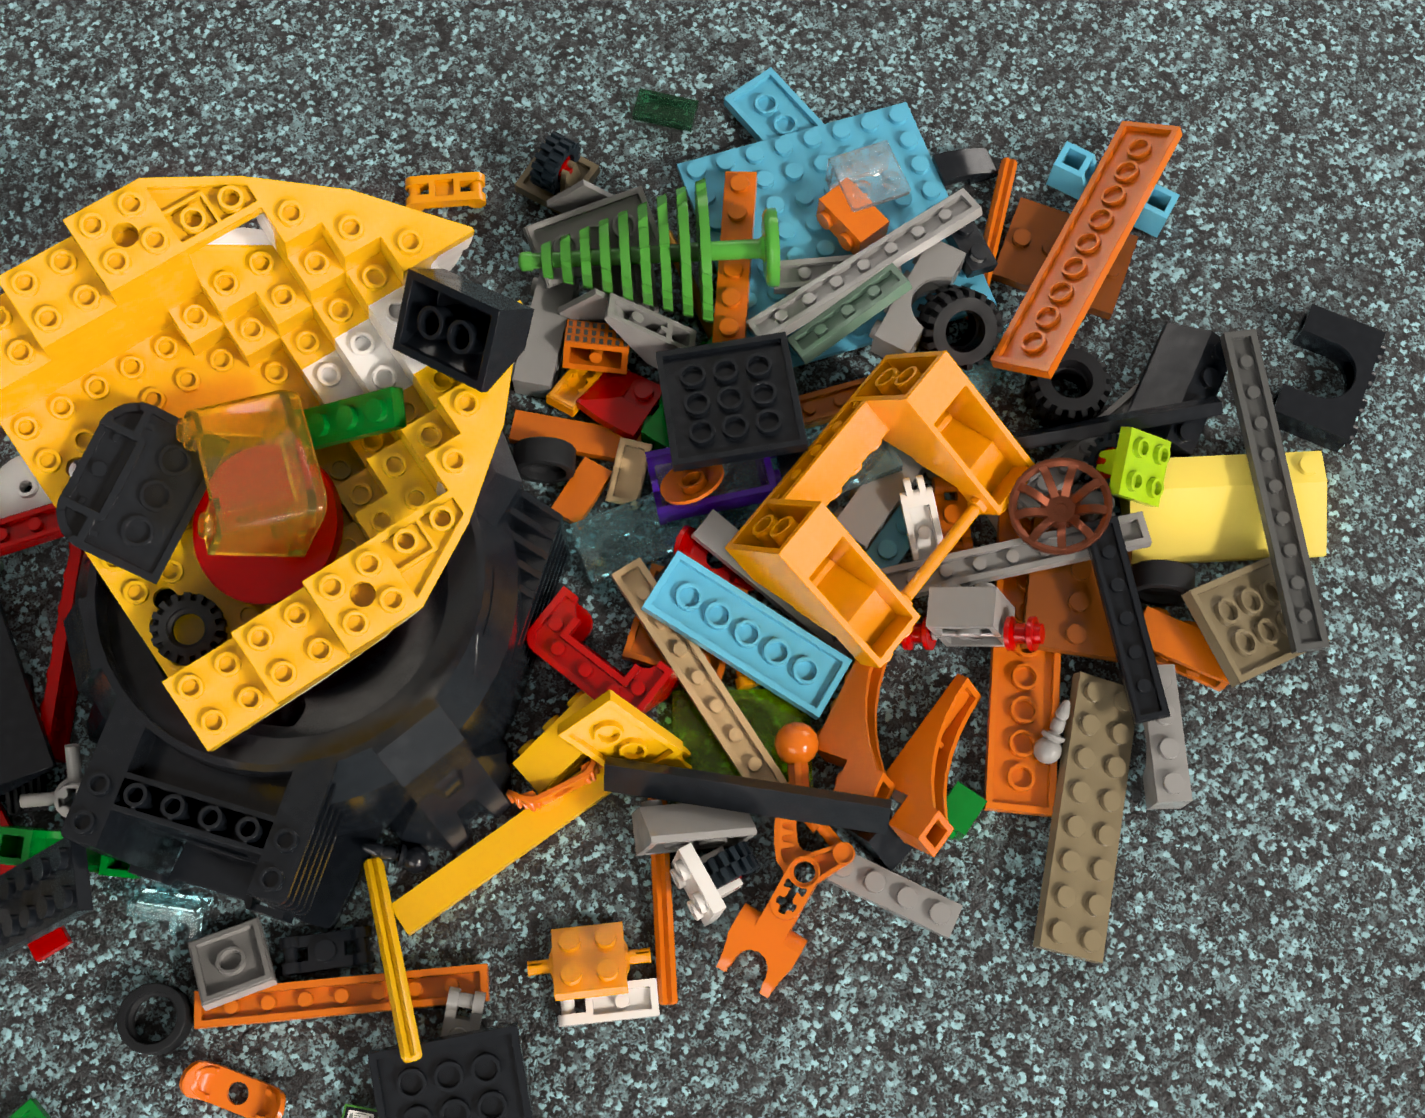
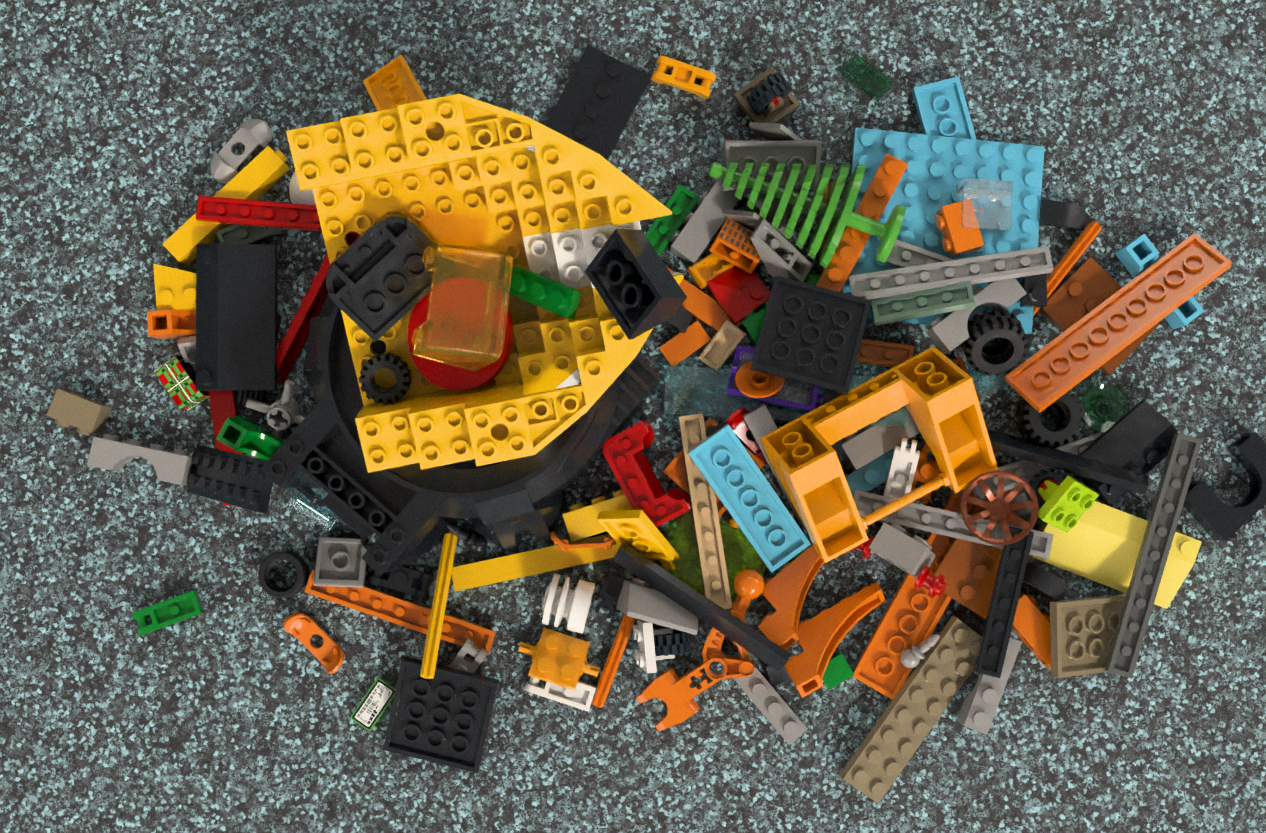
camera: 30 degrees right, 15 degrees up
(568, 876) = (568, 603): none -> white wheel
(621, 840) = (611, 592): none -> black plate
(1125, 341) = (1111, 399): none -> clear green dish

